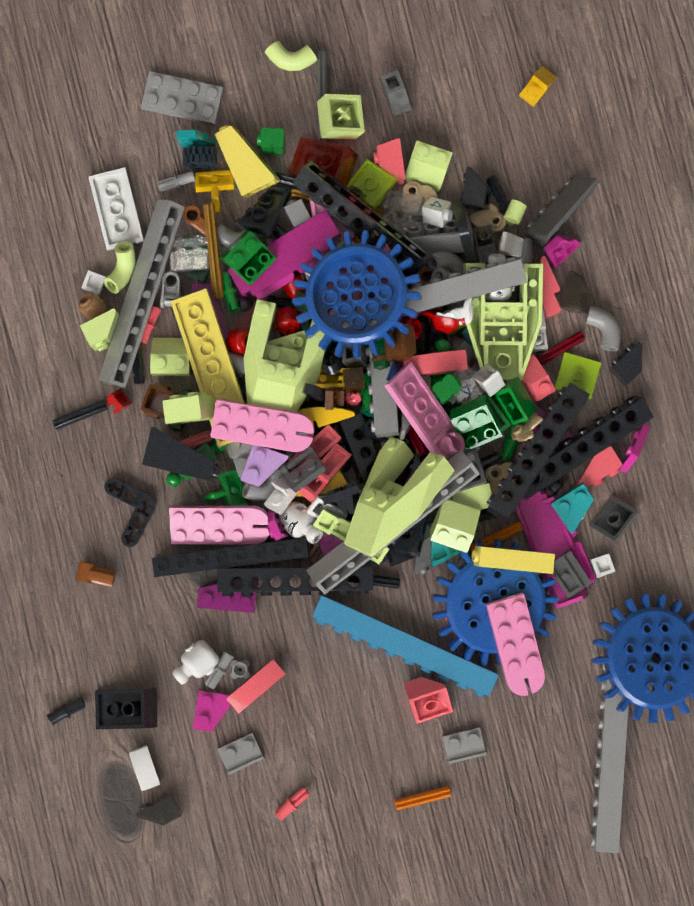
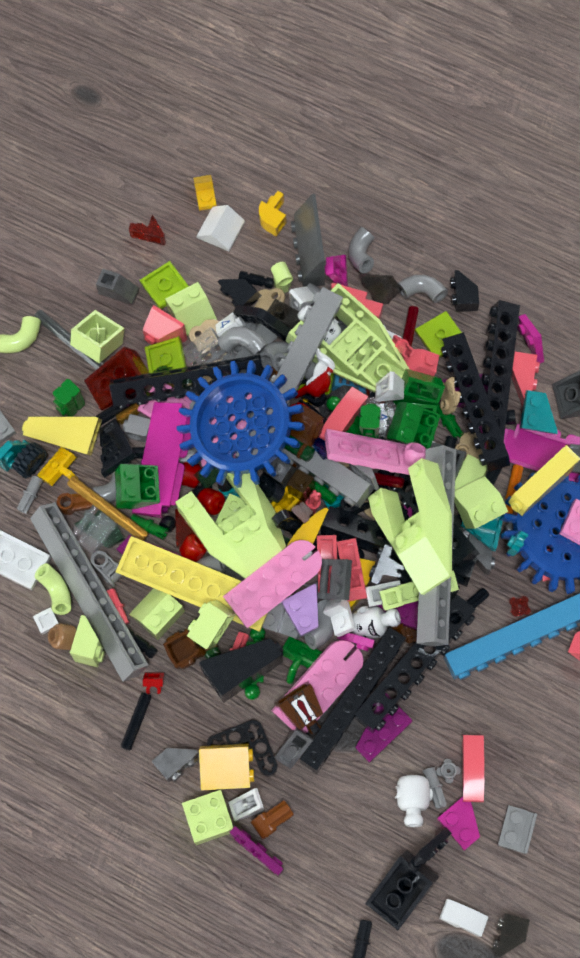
camera: 40 degrees left, 15 degrees down
(56, 528) = (208, 817): none -> yellowish green brick
(64, 603) = (257, 851): none -> magenta wing
(74, 467) = (174, 761): none -> flat silver slope
(89, 548) = (246, 805): none -> white slope
(101, 509) = (225, 766): none -> yellow brick
(156, 545) = (293, 748): none -> flat silver slope
(166, 706) = (429, 850): none -> black plate
(187, 527) = (301, 708): none -> reddish brown torso
(404, 618) = (524, 610): none -> clear red plate
(431, 126) = (163, 283): none -> lime plate
(434, 230) = (241, 336): none -> light grey cylinder
(446, 579) = (516, 542): none -> teal plate
(464, 77) = (152, 233): none -> clear red slope
(518, 126) = (221, 227): none -> white slope
(536, 357) = (403, 346): none -> coral axle
(559, 157) = (269, 215): none -> yellow brick
(591, 251) = (358, 249): none -> light grey cylinder

